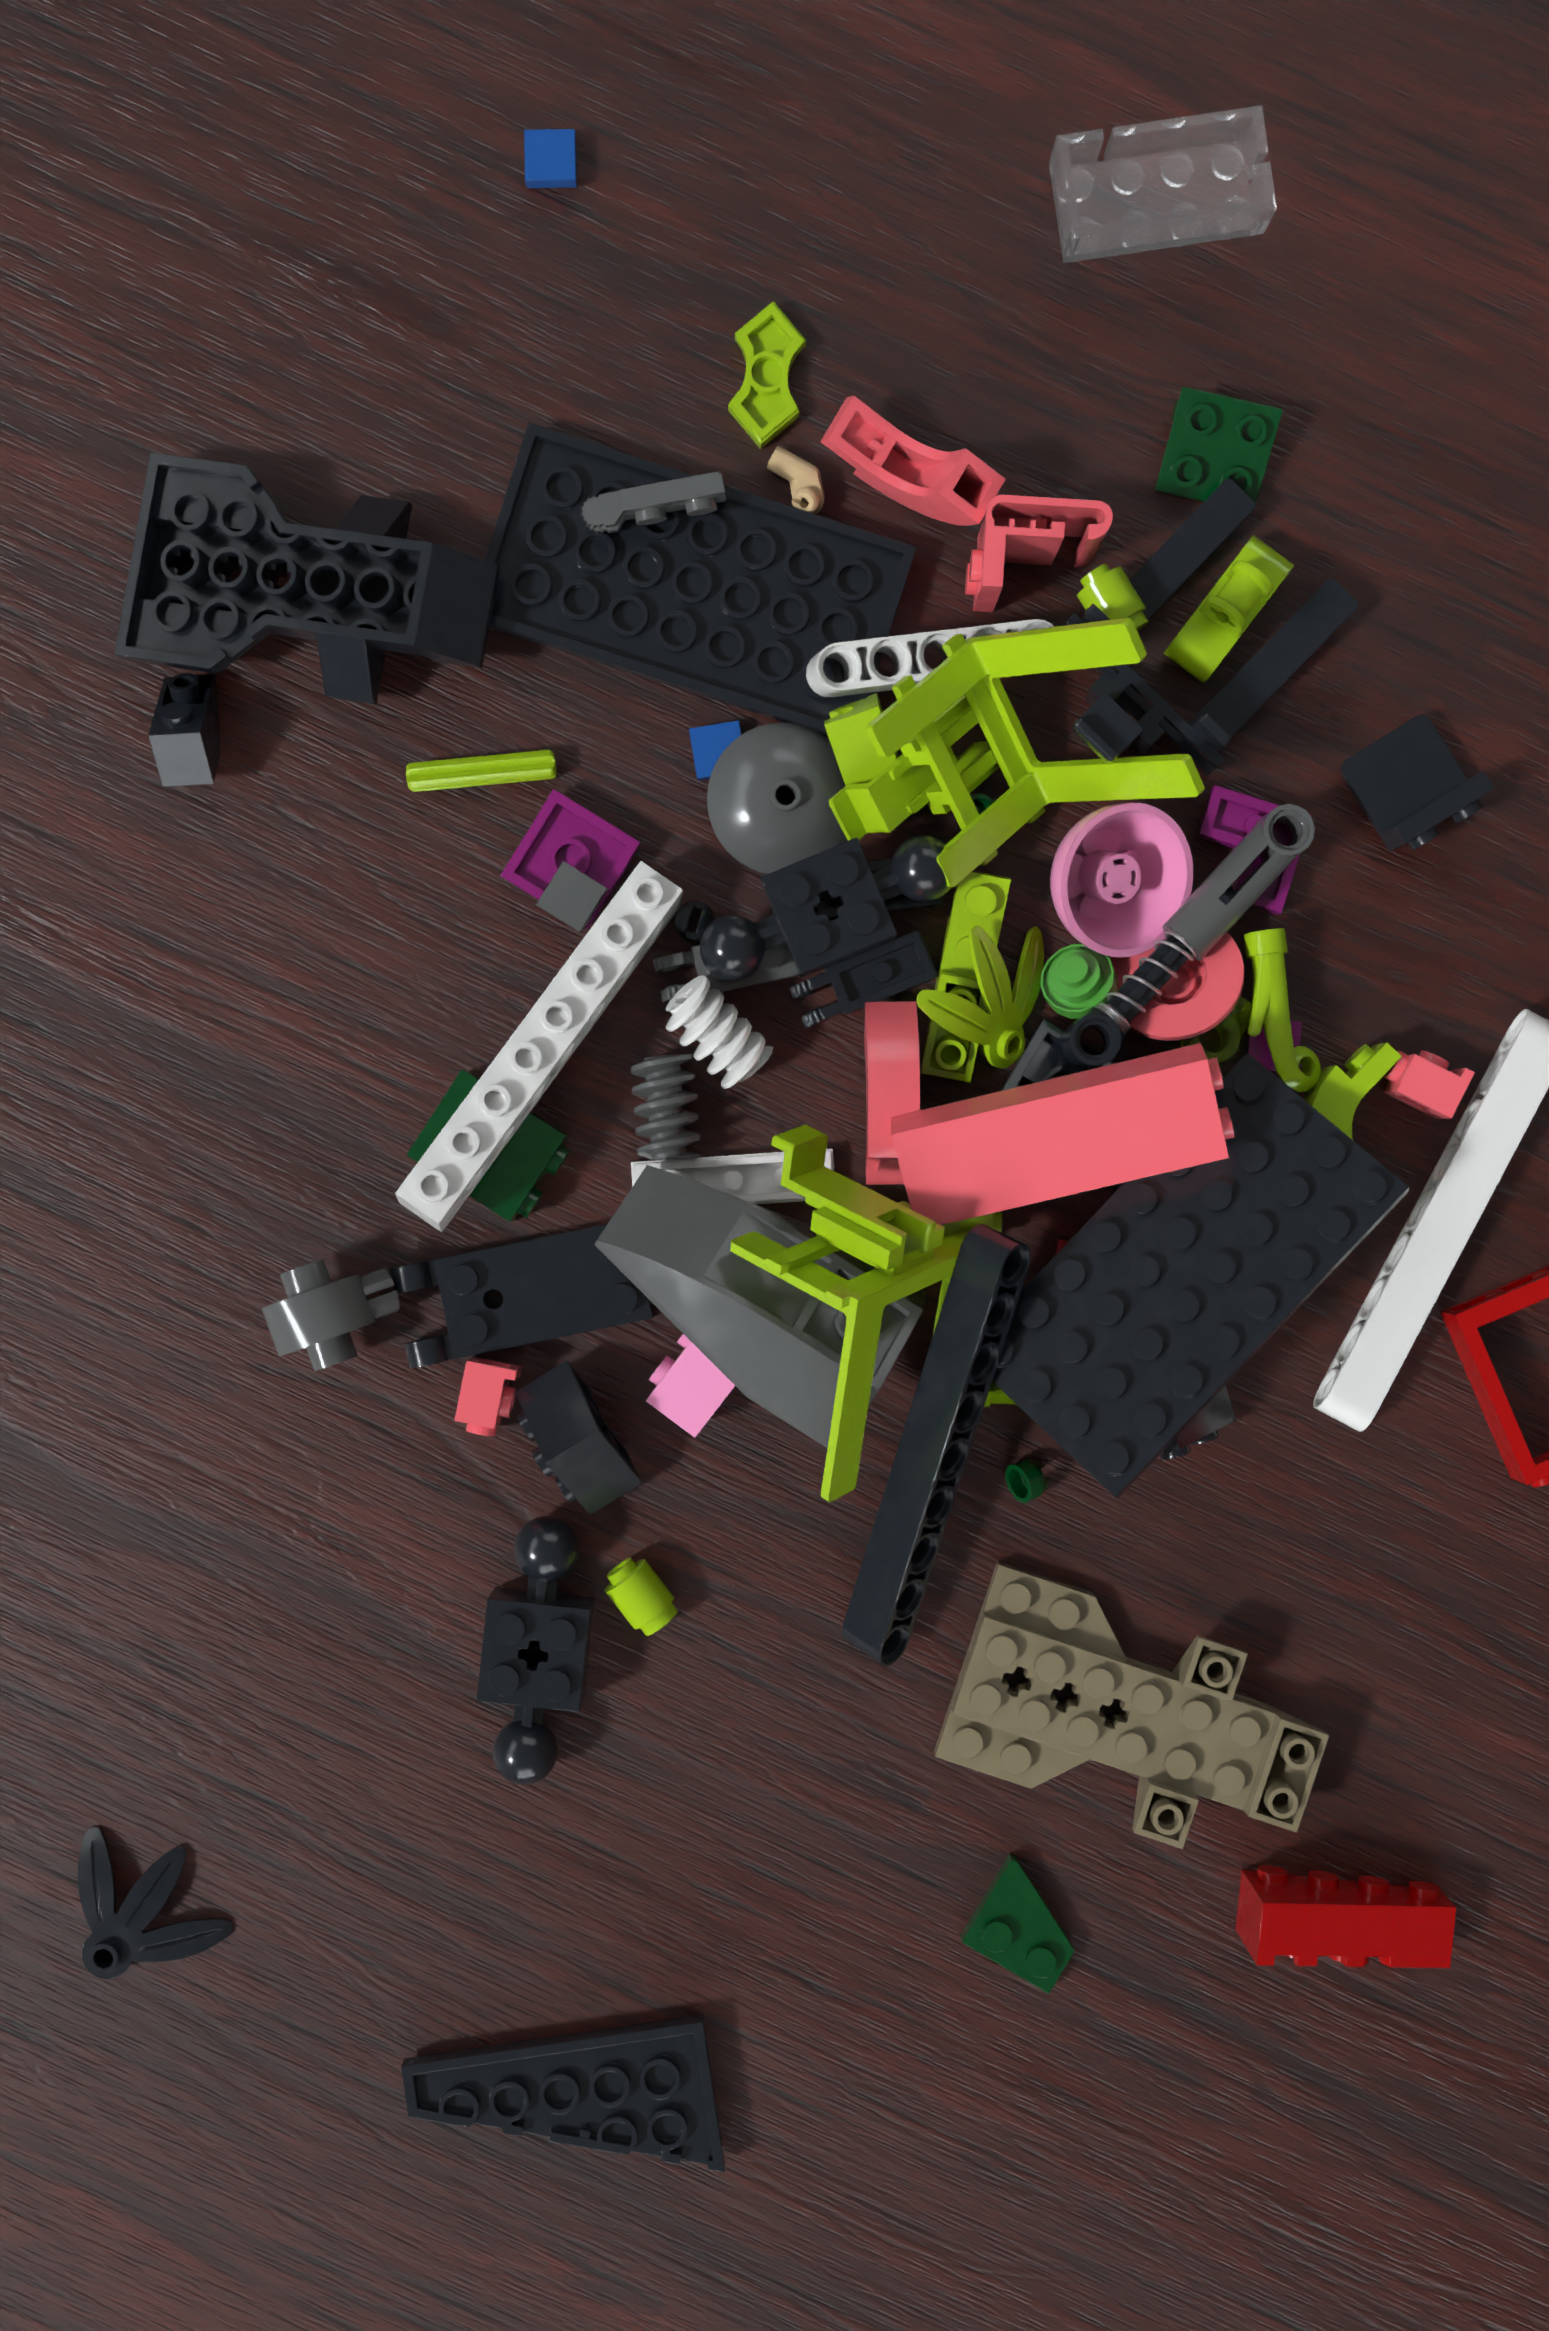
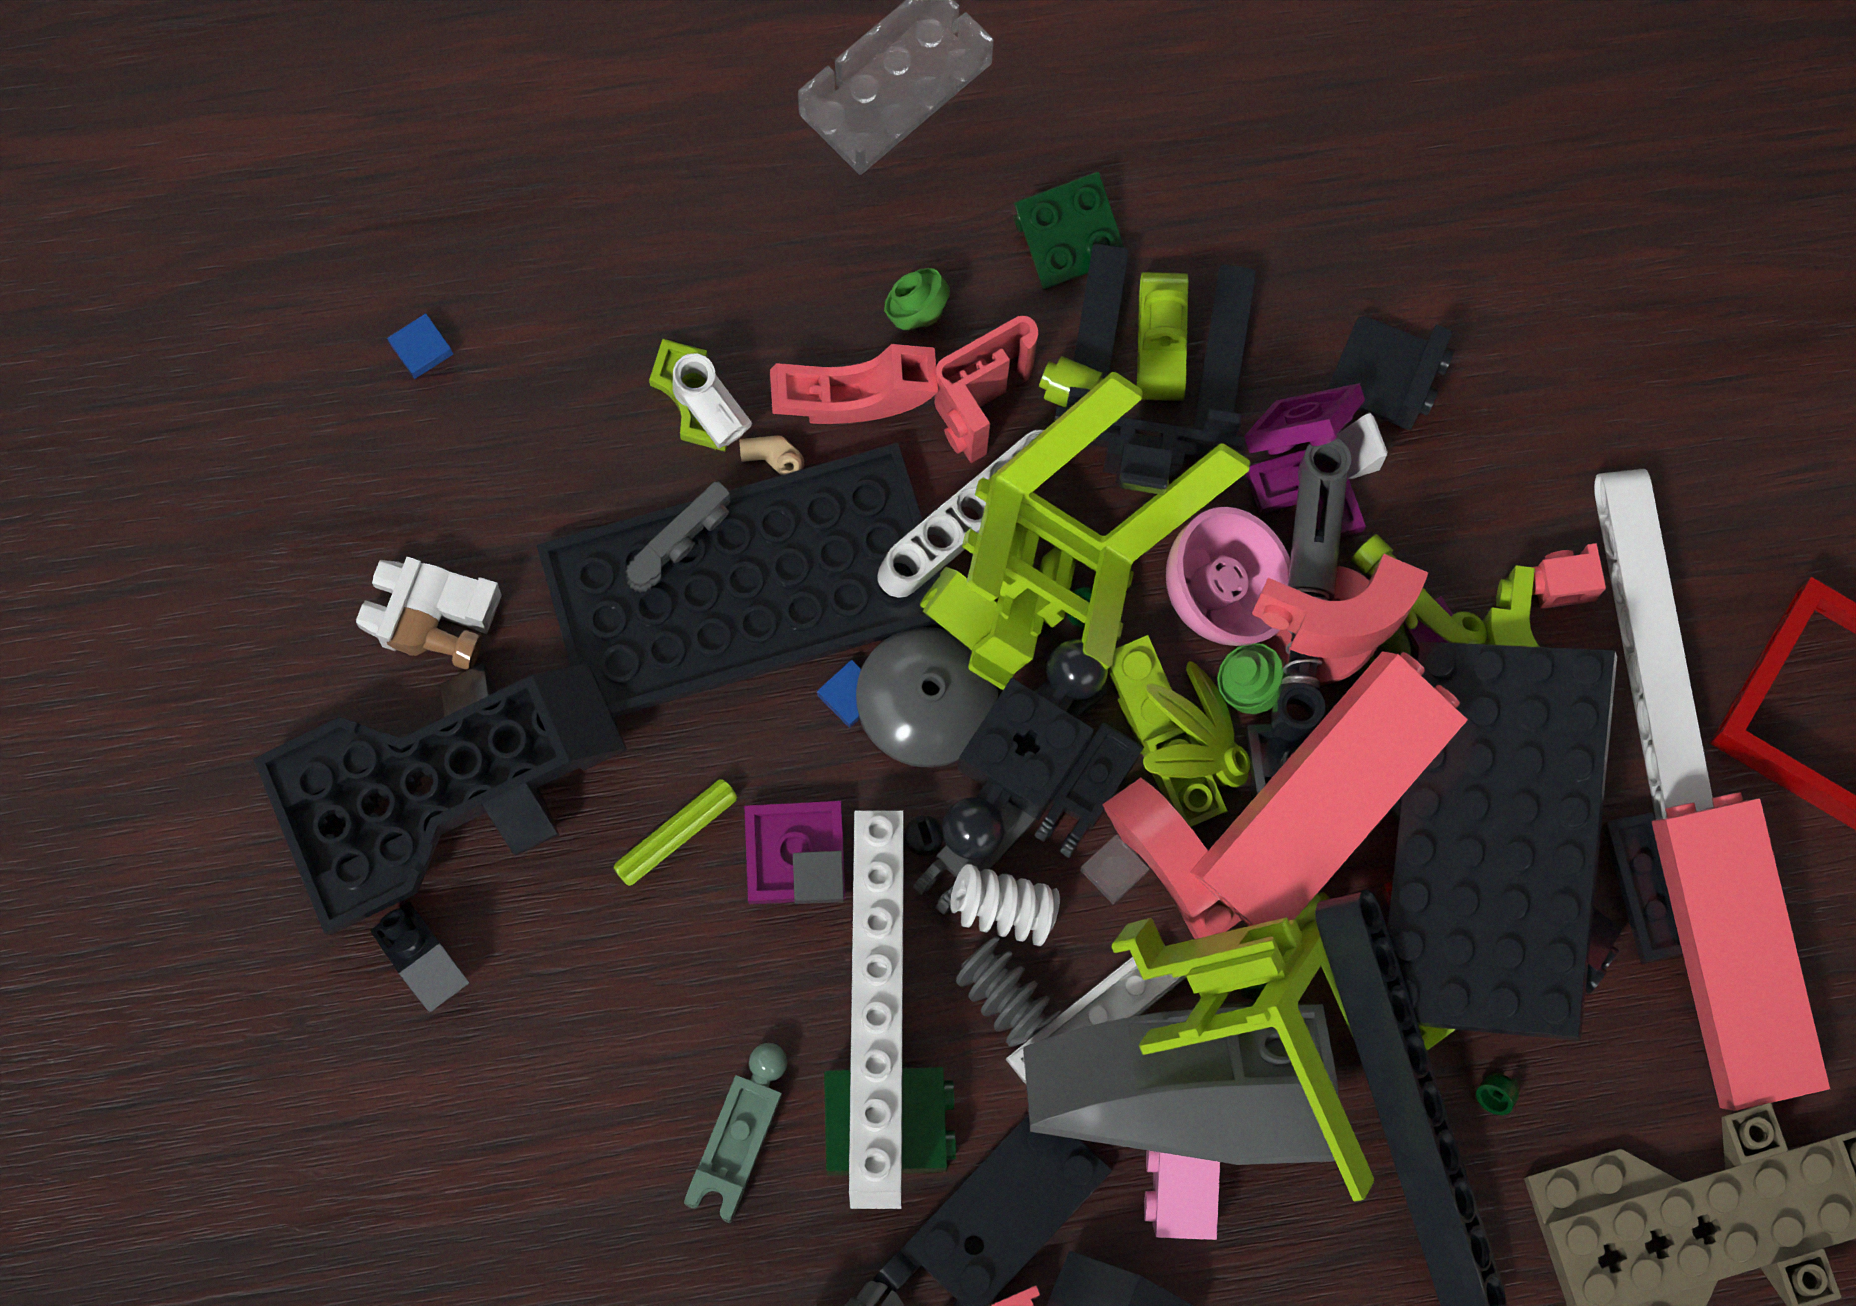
camera: 35 degrees left, 15 degrees down
(360, 1070) = (739, 1132): none -> sand green plate
(387, 407) = (418, 602): none -> white hips
(771, 391) = (710, 403): none -> white piece
(837, 1065) = (1114, 869): none -> clear plate
(1029, 421) = (917, 299): none -> bright green plate
(1190, 998) = (1348, 625): none -> coral arch
(1286, 1399) = (1643, 887): none -> black plate
(1296, 778) = (1304, 419): none -> magenta plate
(1322, 1510) = (1740, 952): none -> coral brick
(1333, 837) = (1365, 446): none -> white slope

